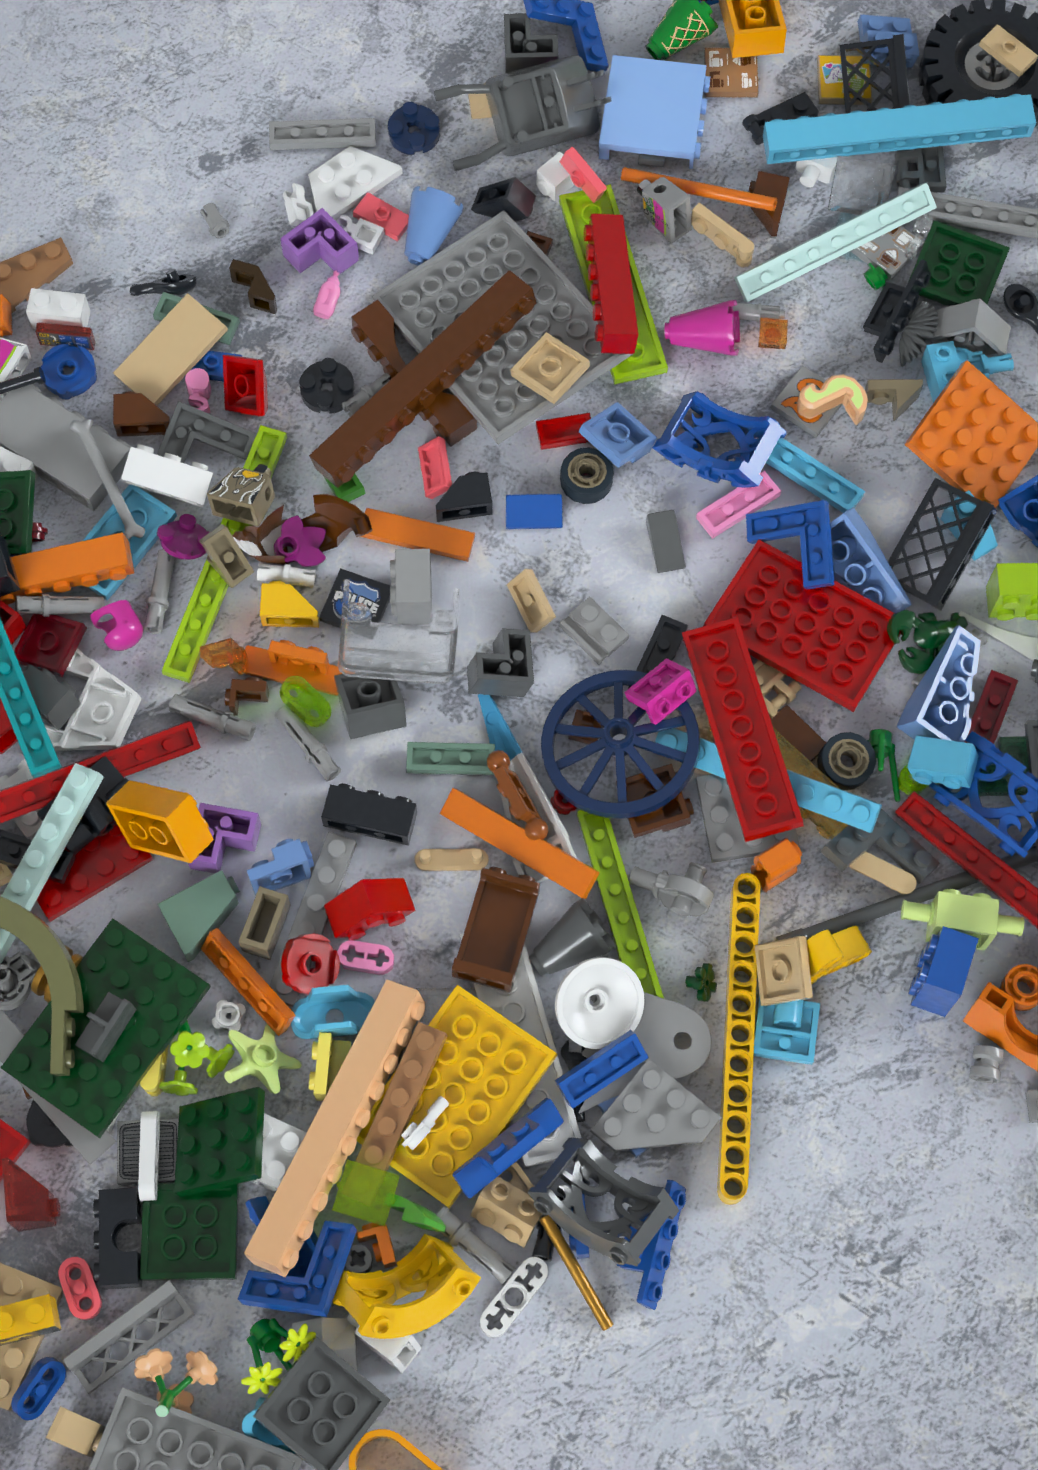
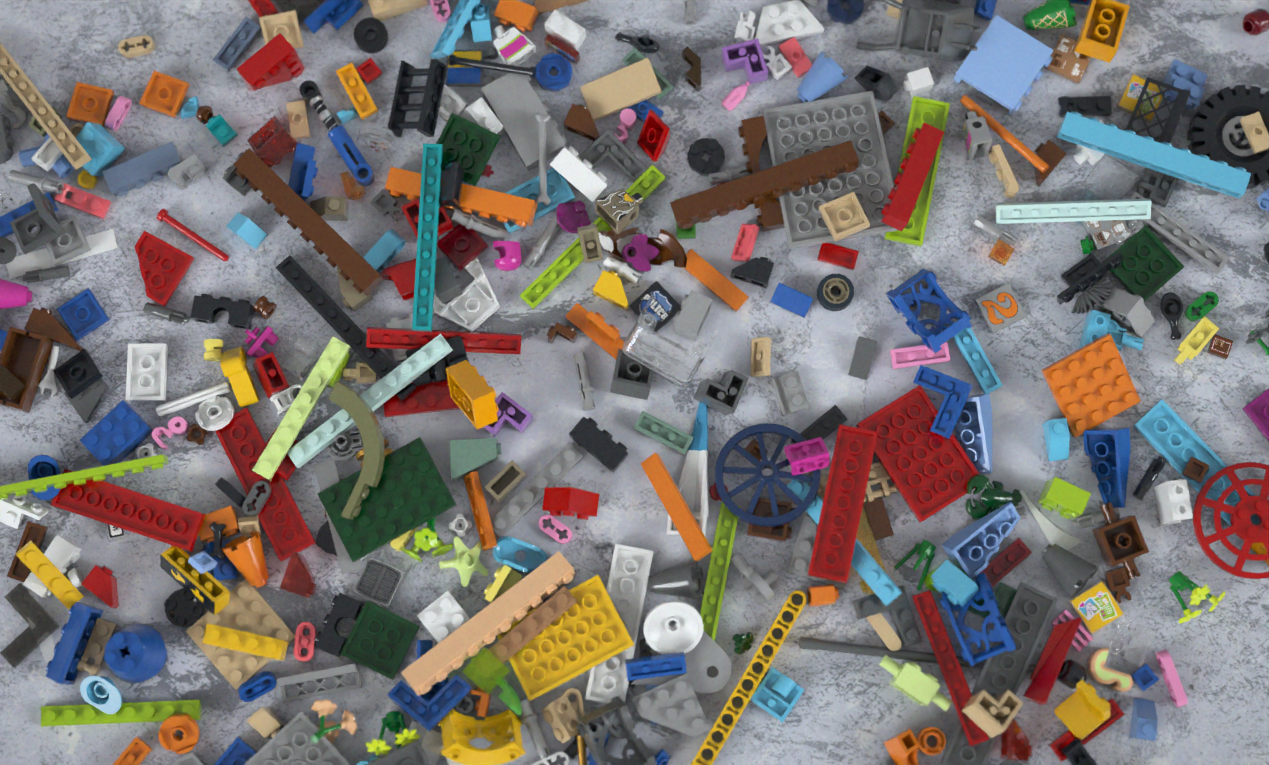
camera: 30 degrees right, 10 degrees up
(105, 1026) = (385, 501): dark grey panel -> none
(149, 1156) = (376, 586): white beam -> none
(220, 1142) = (419, 599): dark green plate -> none
(223, 654) = (561, 304): clear orange bracket -> none
(223, 721) = (541, 344): light grey pin -> none
(290, 866) = (536, 453): medium blue plate -> none
(294, 963) = (512, 512): red plate -> none
(307, 700) = (596, 354): clear neon green plate -> none
(416, 1133) = (530, 650): white plate -> none
(451, 859) = (634, 494): tan piece -> none
(496, 929) = (637, 552): reddish brown panel -> none
(508, 1147) = (579, 685): blue bracket -> none
(512, 788) = (689, 477): dark orange plate -> none
(582, 174) = (932, 91): coral plate -> none
(618, 435) = (867, 276): medium blue plate -> none
(706, 329) = (960, 231): dark pink cone -> none
(783, 971) = (790, 663): tan plate -> none
(835, 391) = (1017, 312): light nougat animal -> none
(835, 951) = (821, 664): yellow beam -> none
(857, 749) = (910, 551): wheel -> none
(898, 391) = (1060, 331): dark tan slope -> none
(943, 971) = (884, 710): blue brick -> none
(962, 548) = (1041, 454): black fence -> none

